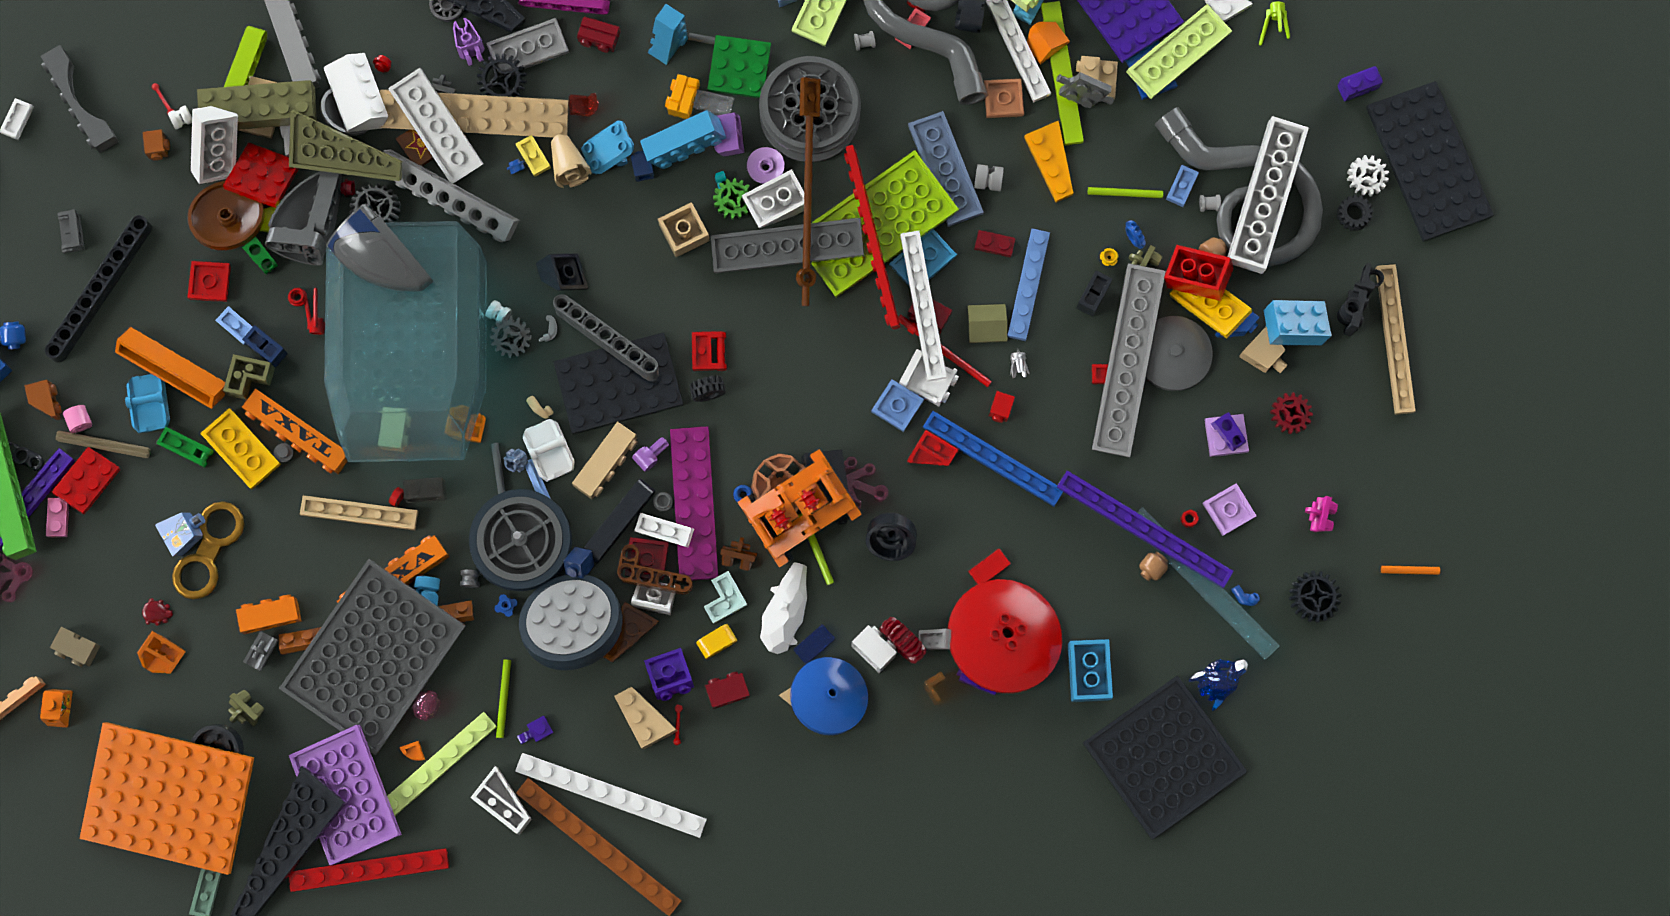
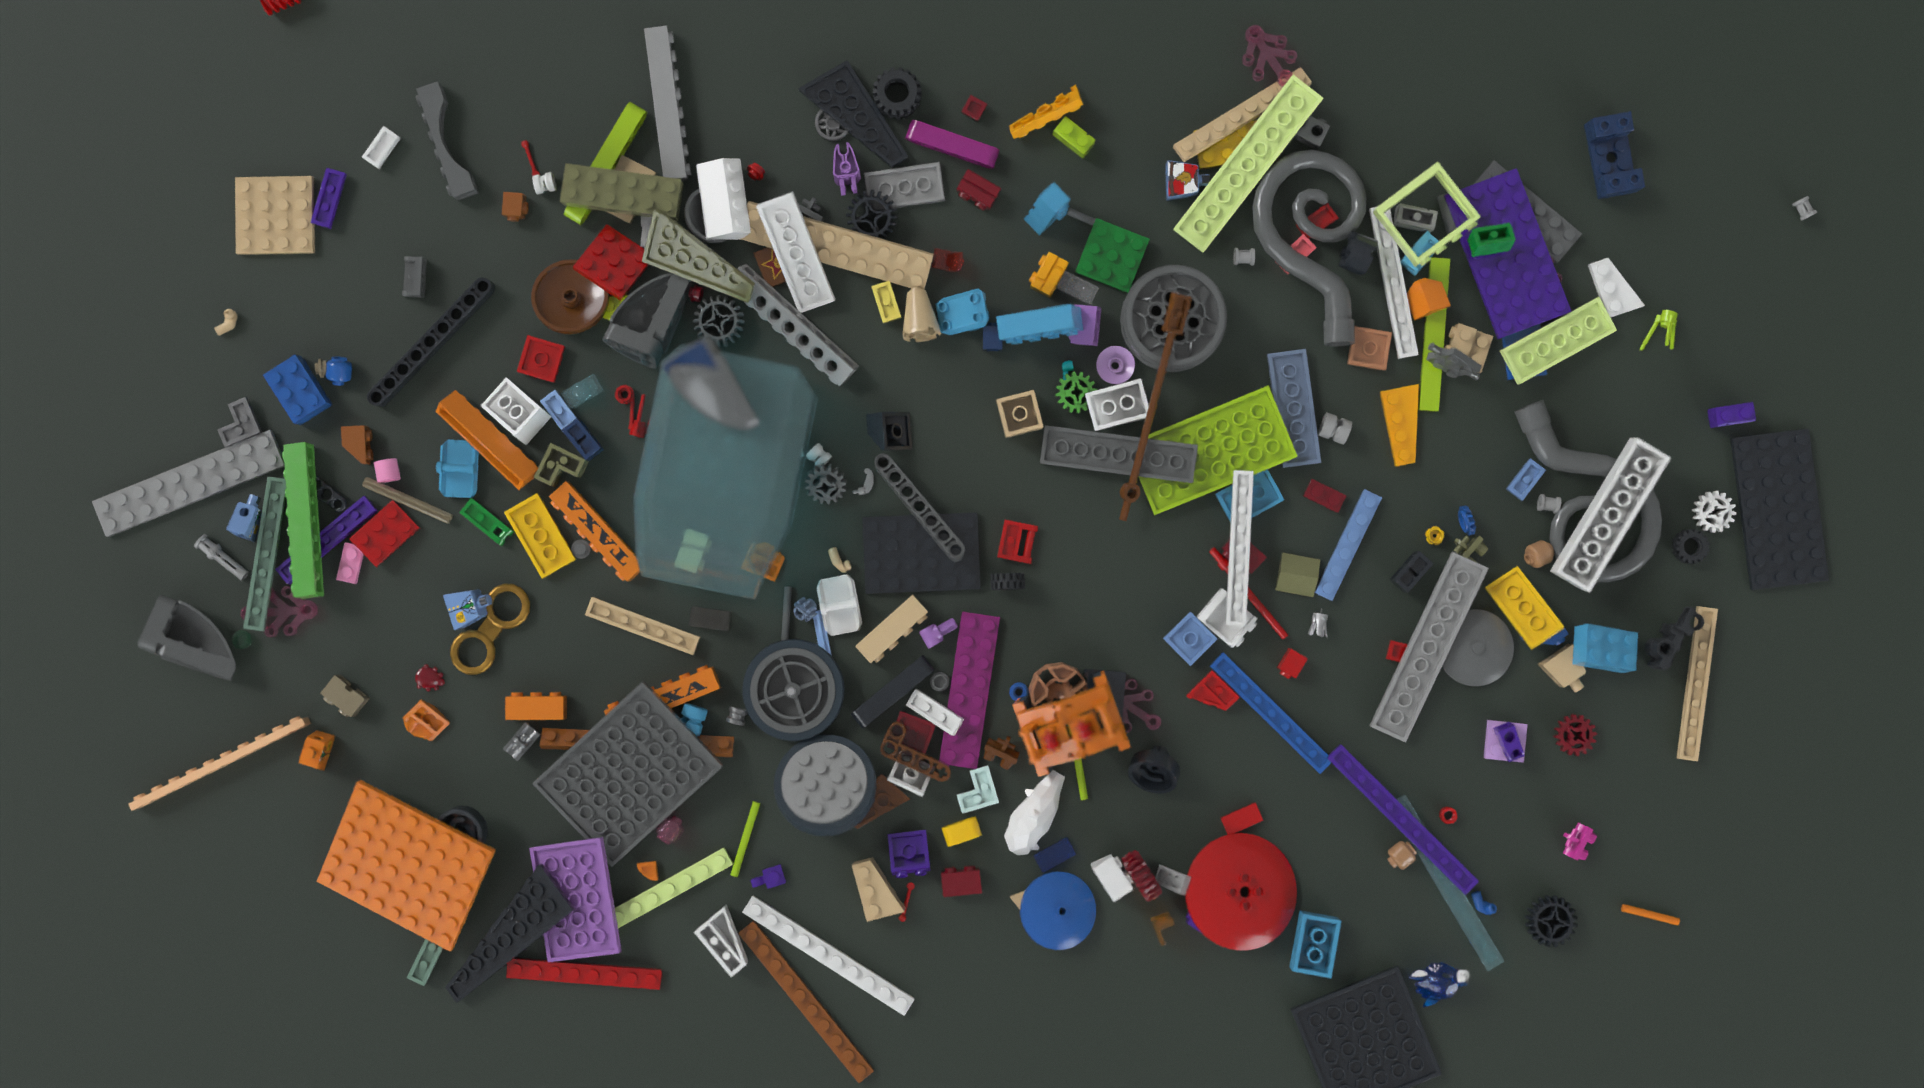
camera: 15 degrees right, 10 degrees up
(194, 335) = (516, 411): none -> white slope
(213, 143) = (570, 223): white slope -> none
(239, 703) = (491, 785): olive hips -> none
(255, 303) = (582, 391): none -> clear light blue tile
(260, 255) = (595, 345): green leg -> none
(396, 497) = (682, 618): red tile -> none
(506, 610) = (766, 744): blue plate -> none
(516, 166) = (867, 309): blue plate -> none
(579, 562) = (845, 726): dark blue brick -> none
(873, 245) = (1204, 458): red plate -> none
(1125, 192) = (1466, 472): lime bar -> none
(1198, 272) = (1520, 577): red brick -> none
(1229, 509) = (1489, 816): lavender plate -> none

